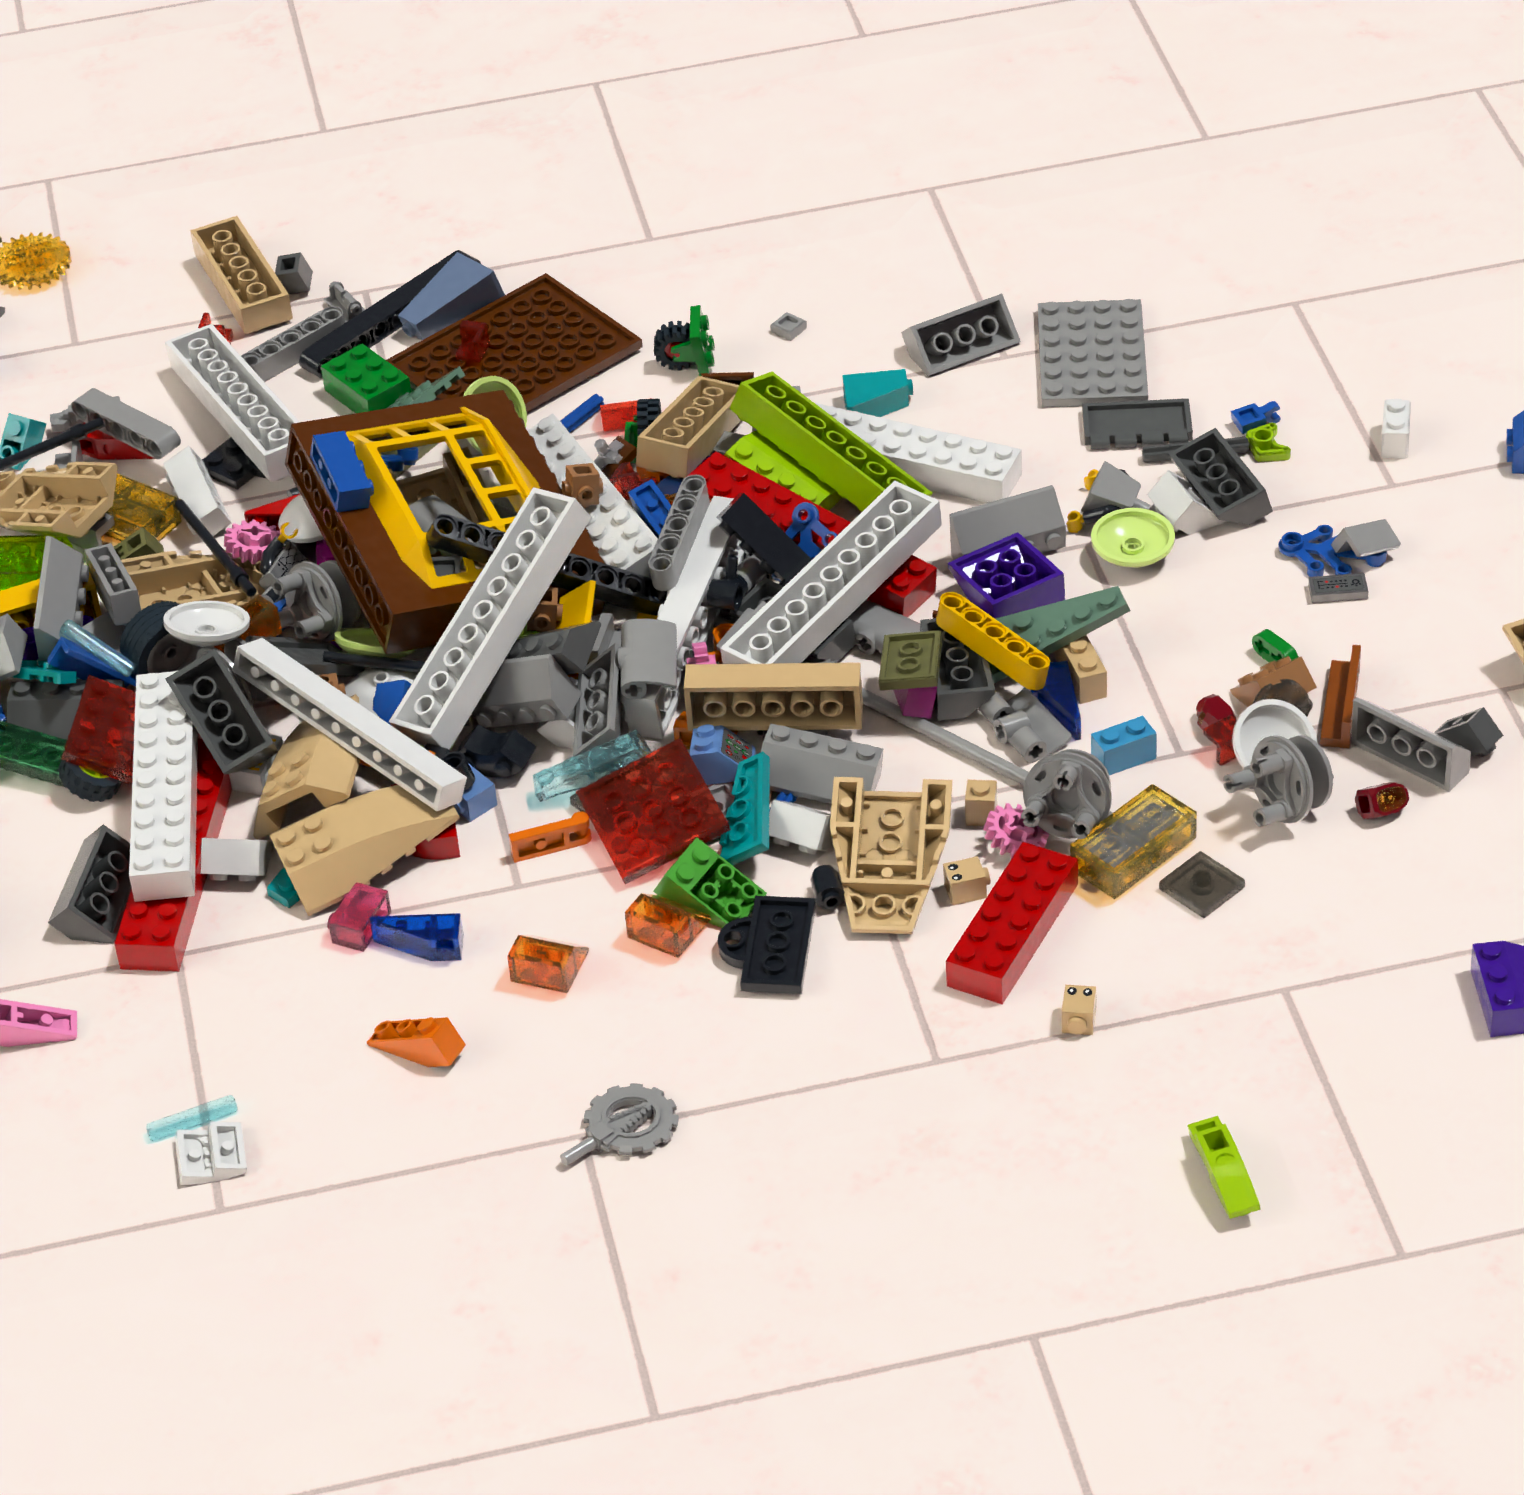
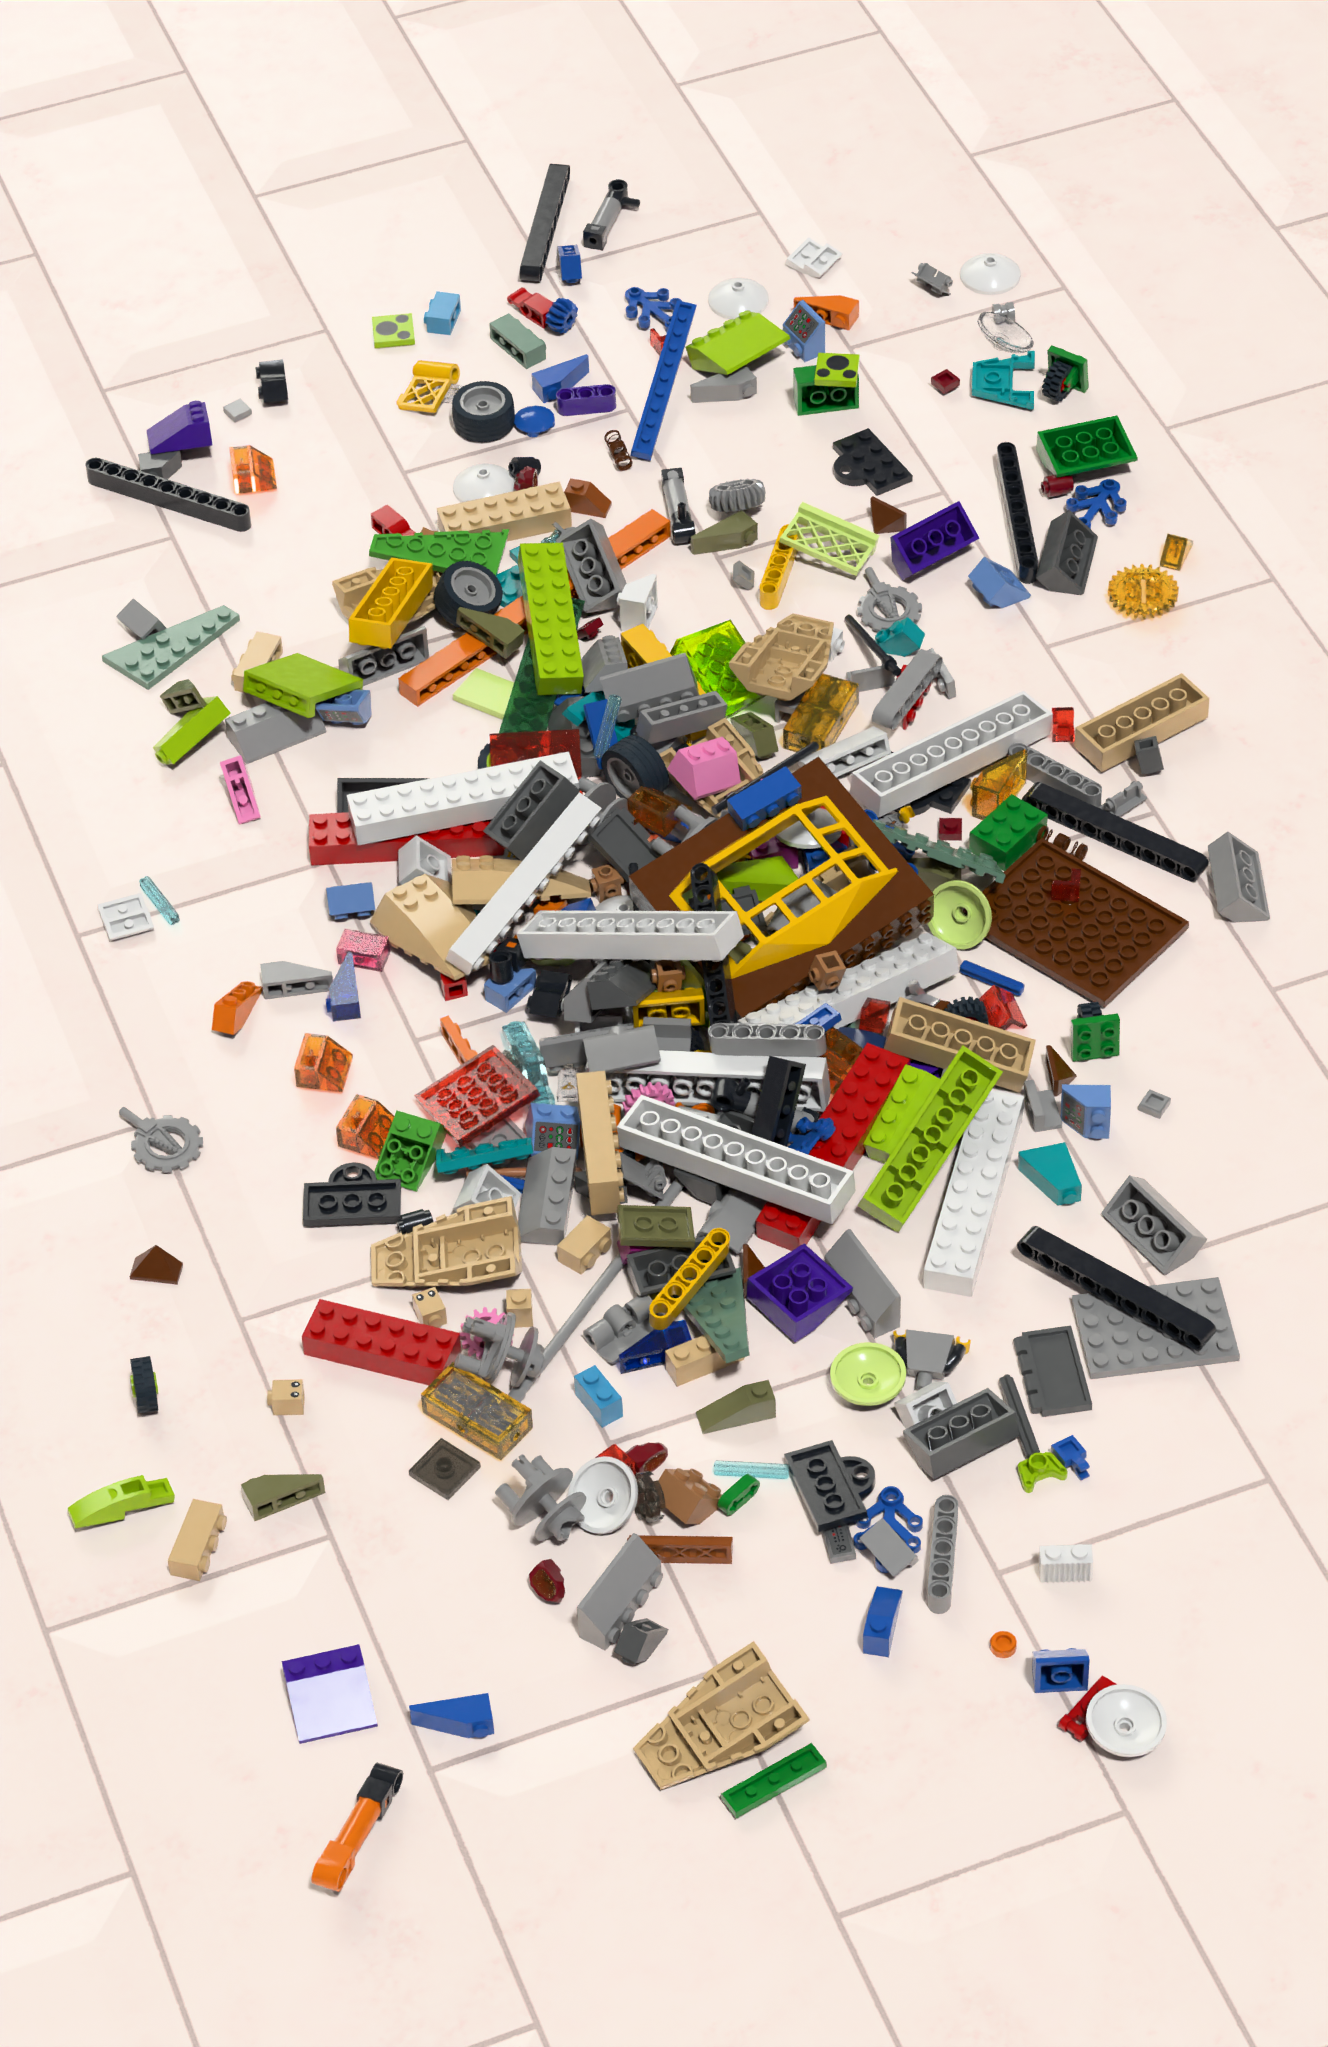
camera: 80 degrees right, 5 degrees up
(187, 581) = (706, 768): none -> bright pink slope
(206, 622) = (621, 773): white dish -> none
(263, 924) = (350, 899): none -> medium blue slope
(305, 377) = (998, 783): none -> clear yellow slope
(385, 986) = (293, 979): none -> light grey slope
(393, 348) = (1063, 842): none -> reddish brown piece
(450, 296) = (1135, 863): sand blue slope -> none
(496, 237) = (1237, 880): none -> light grey slope
(804, 353) = (1087, 1109): none -> medium blue slope
(839, 1136) = (156, 1266): none -> reddish brown slope
(903, 750) = (584, 1245): none -> tan brick
(1049, 358) = (1116, 1288): none -> black beam
(1050, 1129) = (144, 1384): none -> black wheel
(1155, 642) = (741, 1407): none -> olive slope
(1228, 1031) = (278, 1492): none -> olive slope
(1238, 643) = (756, 1469): none -> clear light blue axle
(1273, 581) = (831, 1484): none -> black plate
(1287, 1099) = (197, 1540): none -> tan brick
(1357, 507) = (942, 1554): none -> light grey beam
(1457, 559) = (881, 1621): none -> blue slope
(1486, 486) = (1003, 1644): none -> orange tile

